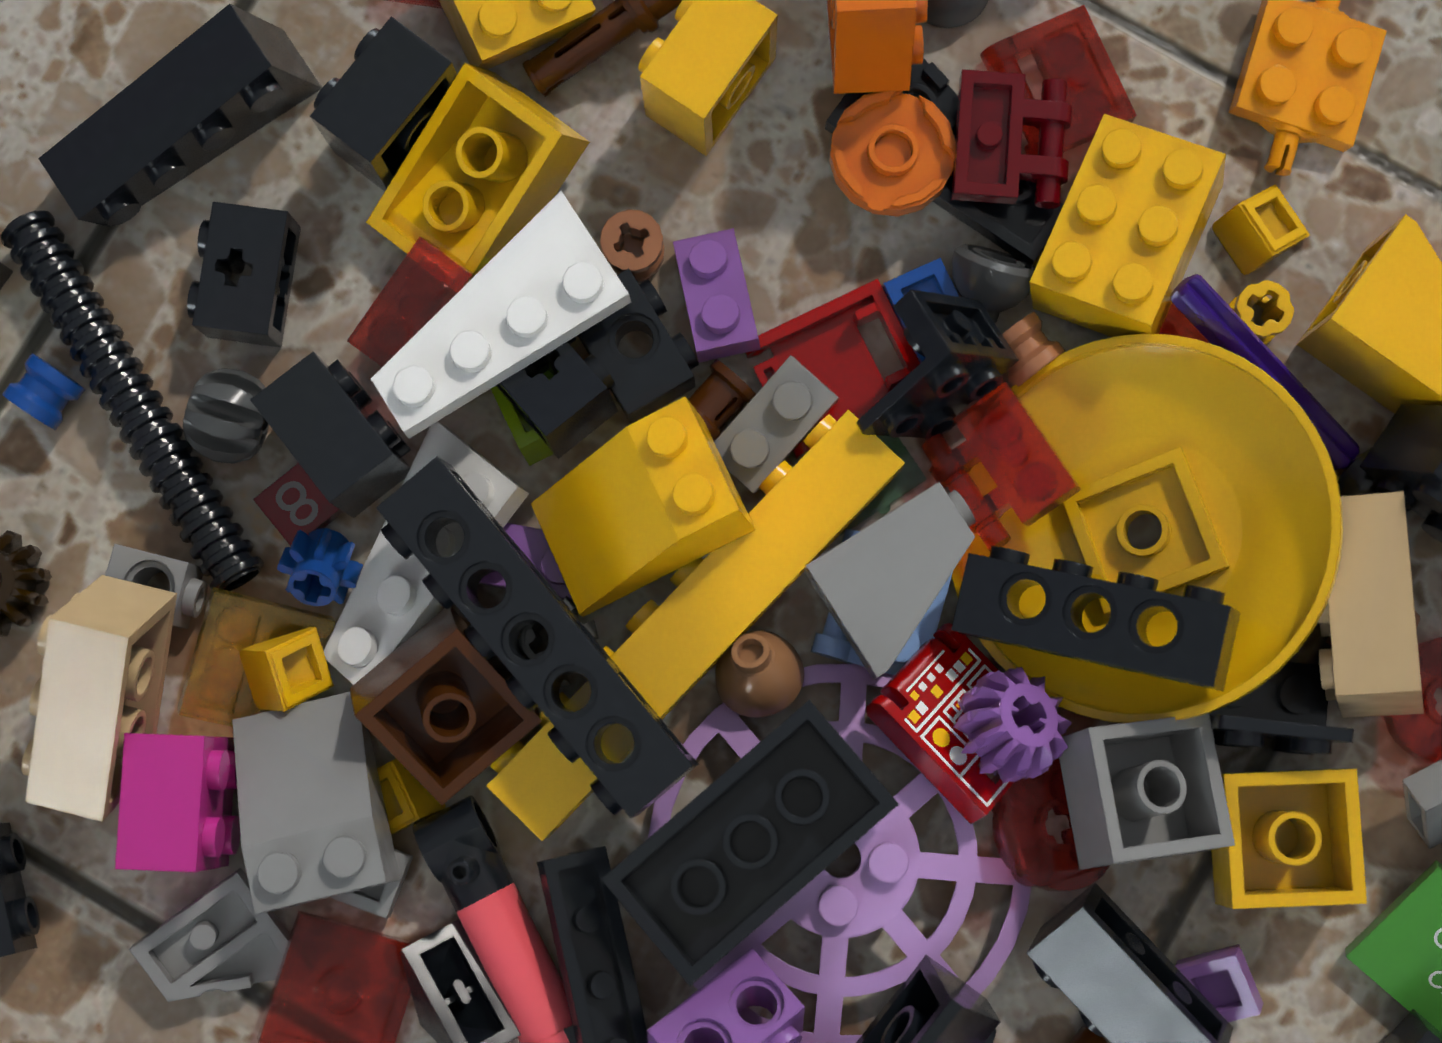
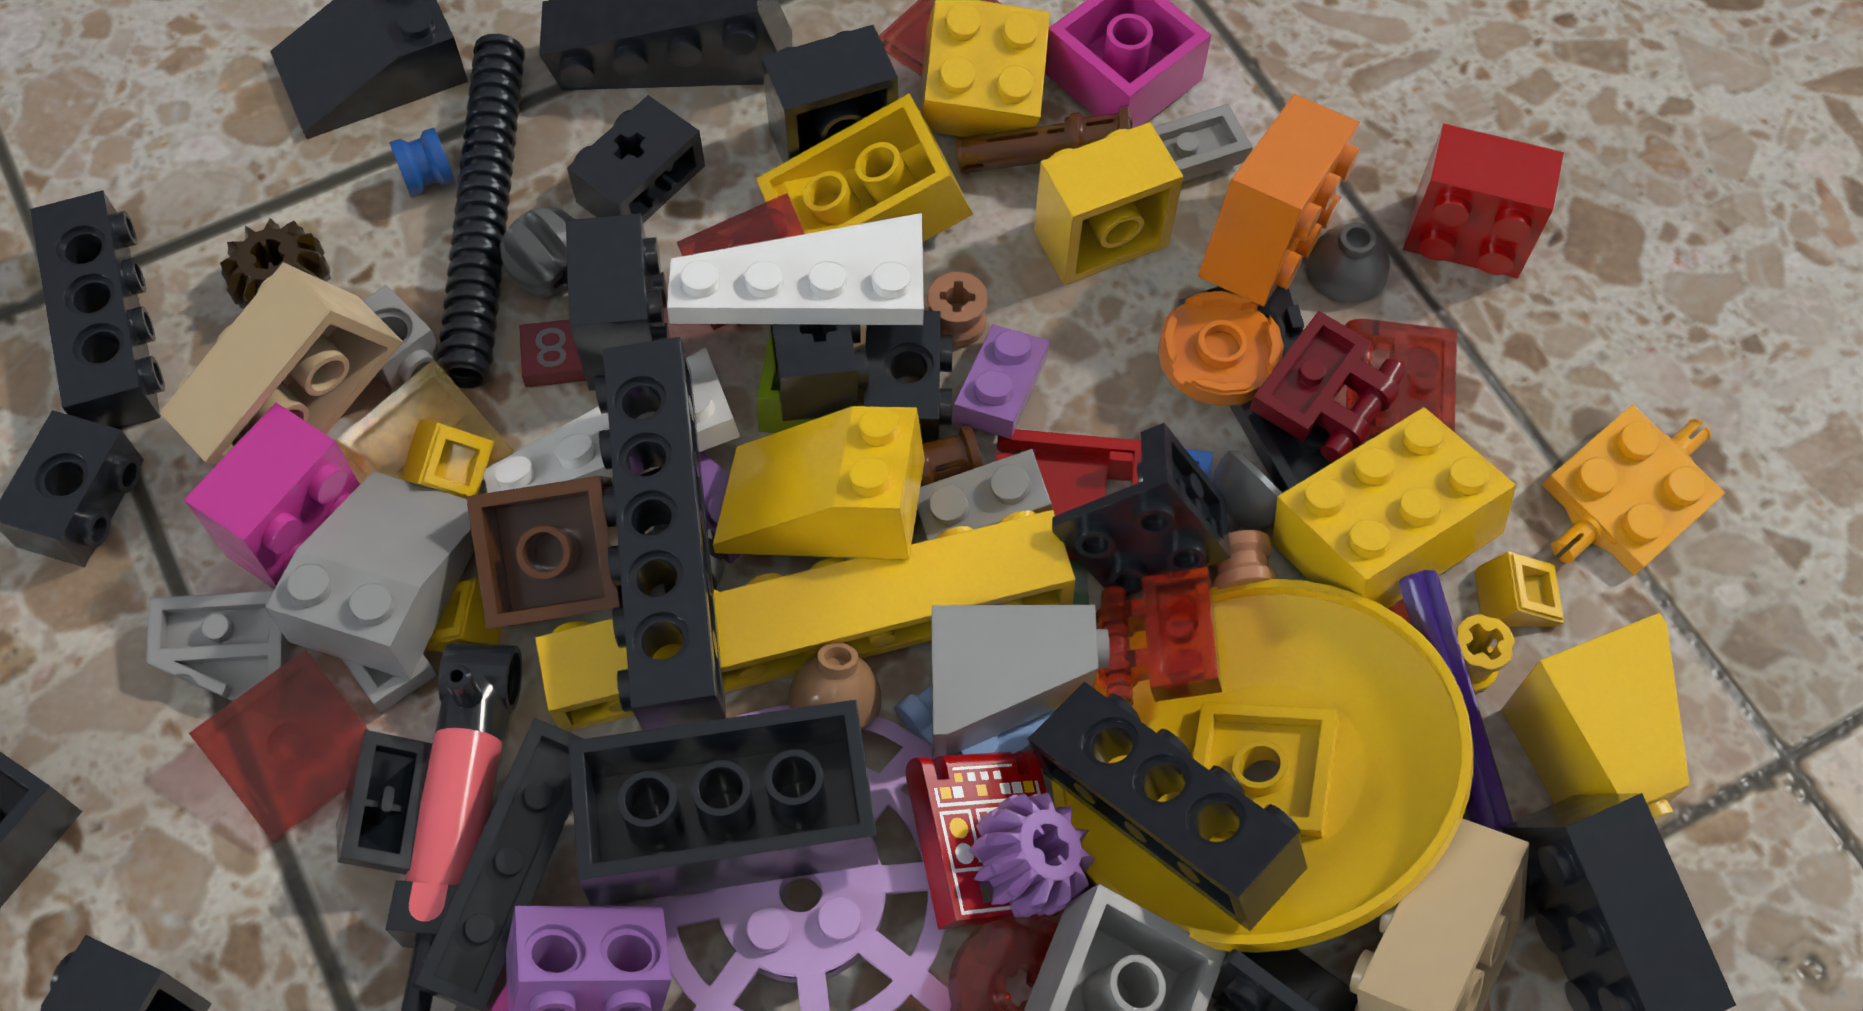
camera: 25 degrees right, 20 degrees down
(320, 567) = (531, 399): blue gear -> none

